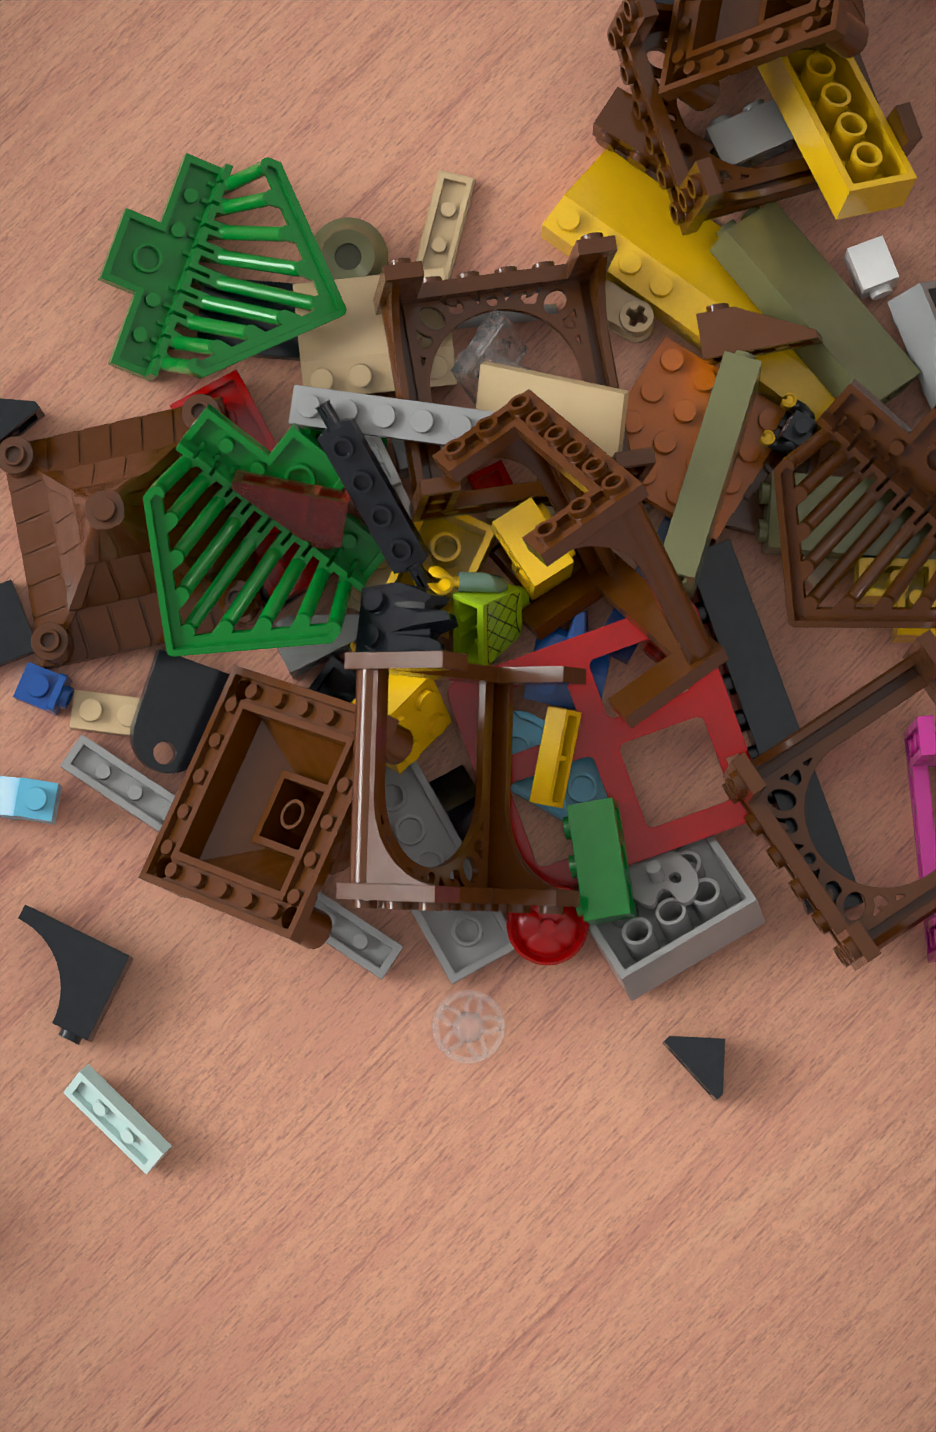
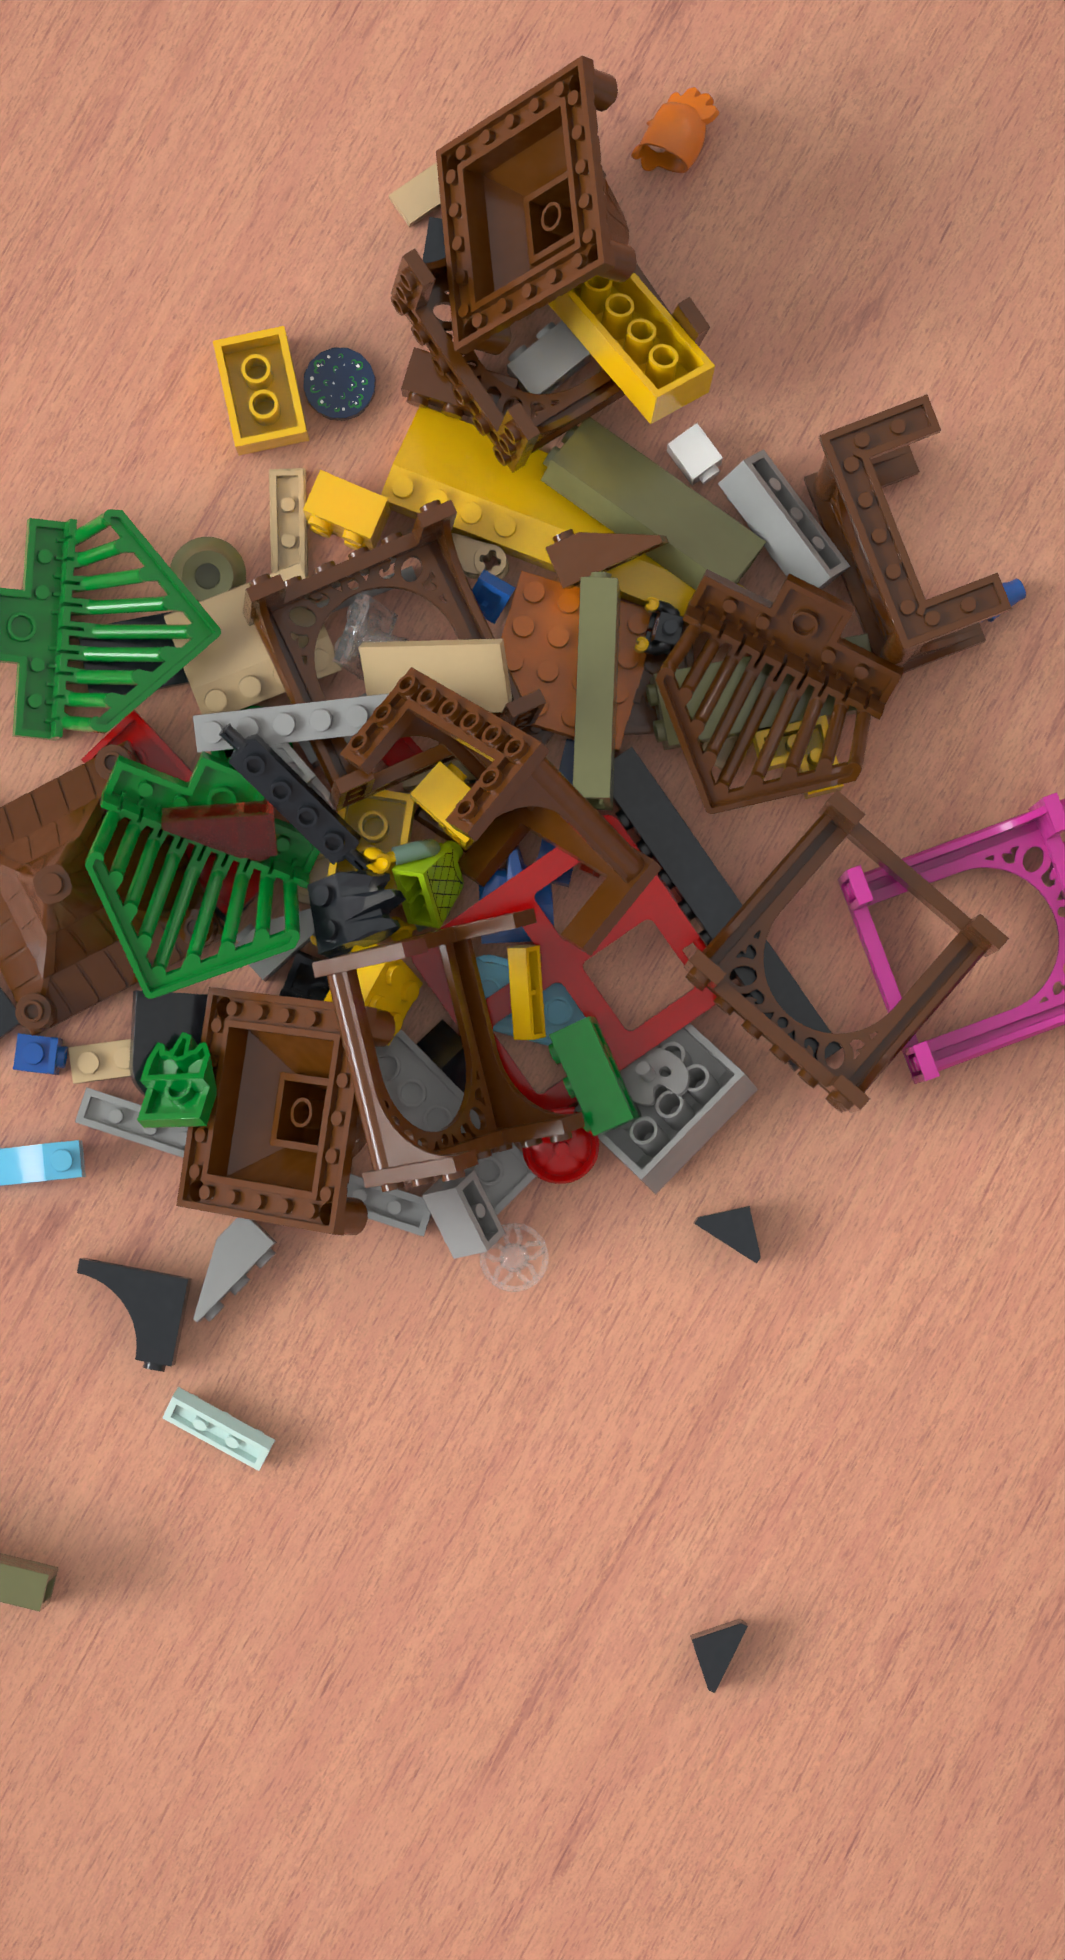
camera: 15 degrees left, 5 degrees up
(174, 755) = (178, 1085): none -> green plate
(183, 946) = (233, 1256): none -> light grey slope
(429, 966) = (464, 1215): none -> light grey brick
(452, 89) = (261, 390): none -> yellow brick
(505, 228) = (346, 511): none -> yellow brick
(532, 105) = (339, 384): none -> dark blue tile
(629, 351) = (492, 595): none -> blue bracket

